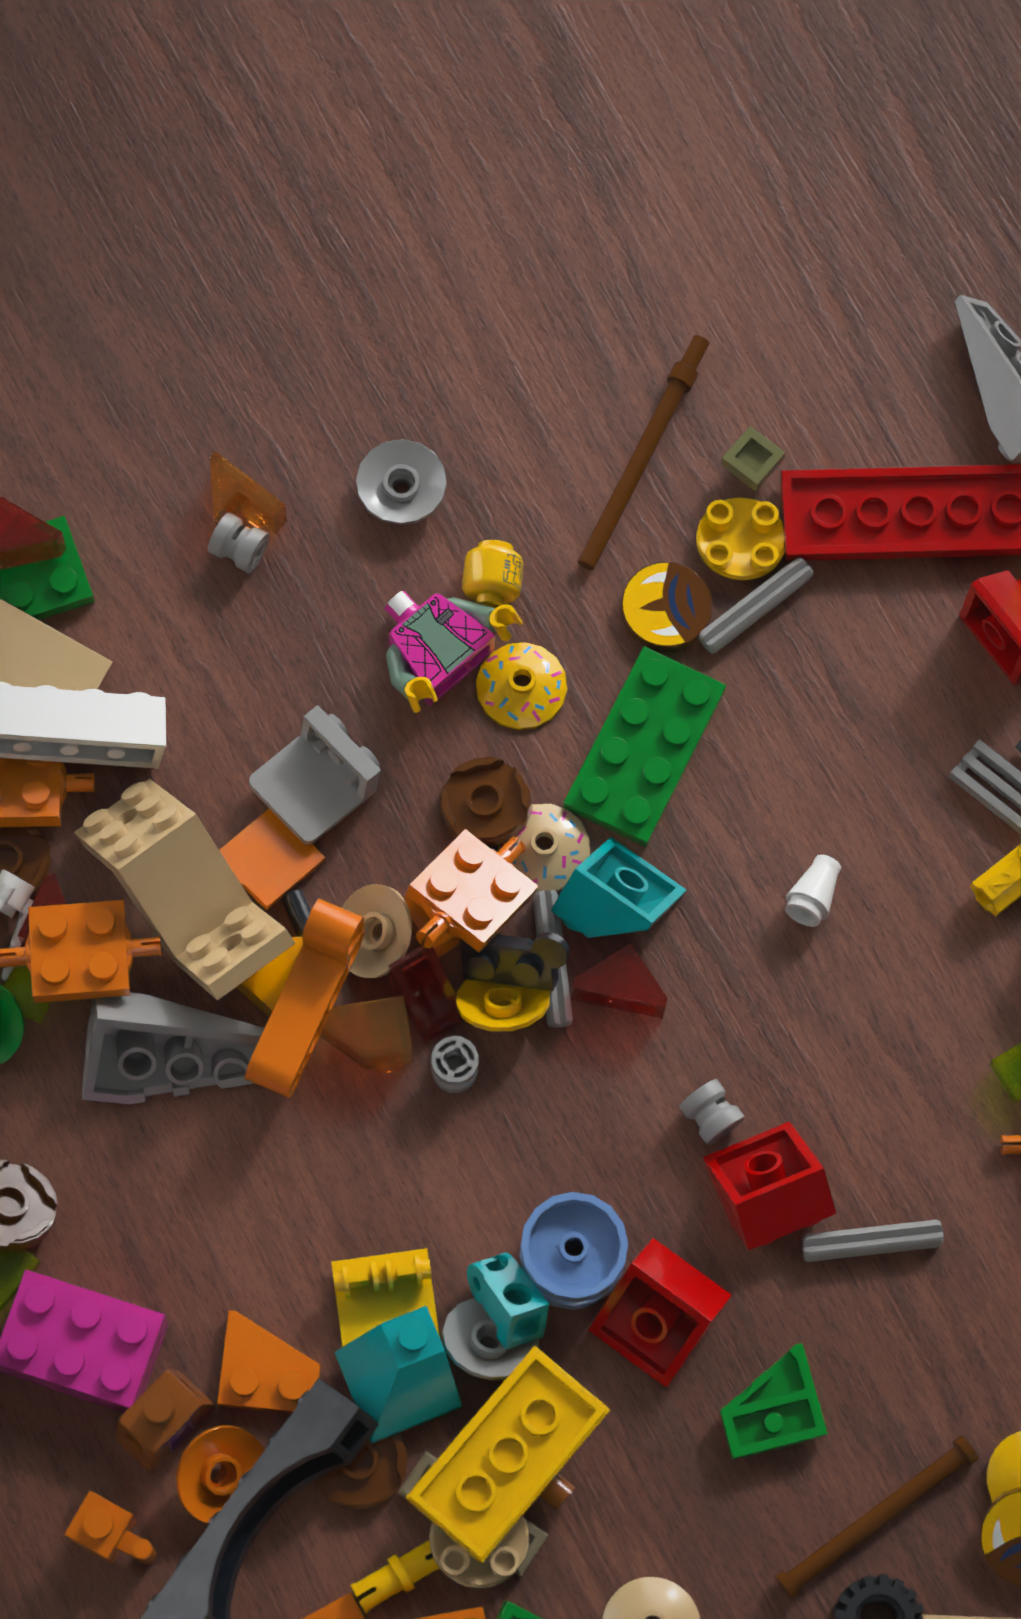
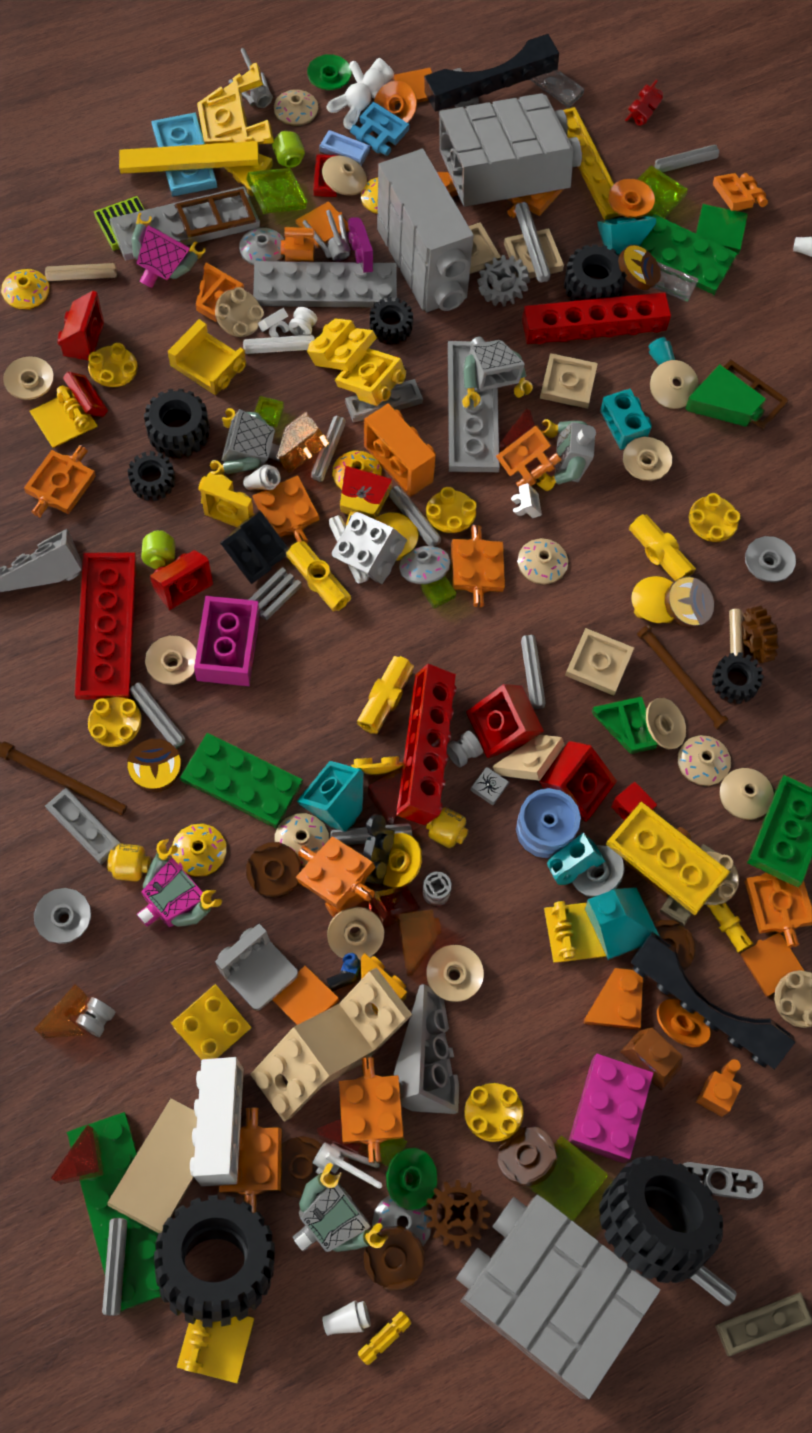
camera: 90 degrees left, 5 degrees down
(81, 1156) = (494, 1112): none -> yellow dish
(226, 714) = (211, 1024): none -> yellow hinge
(327, 954) = (405, 967): orange beam -> none
(337, 1093) = (456, 959): none -> tan dish
(558, 503) = (82, 825): none -> light grey tile
(566, 1083) = (448, 828): none -> yellow head
(594, 1009) = (427, 745): none -> red brick
(627, 1410) = (630, 799): none -> red brick
(647, 1159) = (489, 786): none -> light grey tile
(669, 960) = (387, 765): none -> yellow dish
(697, 1229) = (531, 759): none -> tan wing
(707, 1577) = (704, 771): none -> tan dish
(752, 458) = (66, 710): olive tile -> none
(780, 1493) = (665, 723): none -> tan dish
(810, 978) = (385, 695): none -> yellow piece
(813, 893) = (334, 690): white cone -> none
(860, 601) = (168, 650): none -> tan dish
(894, 705) = (227, 641): none -> dark pink brick
(897, 1361) = (599, 661): none -> tan plate

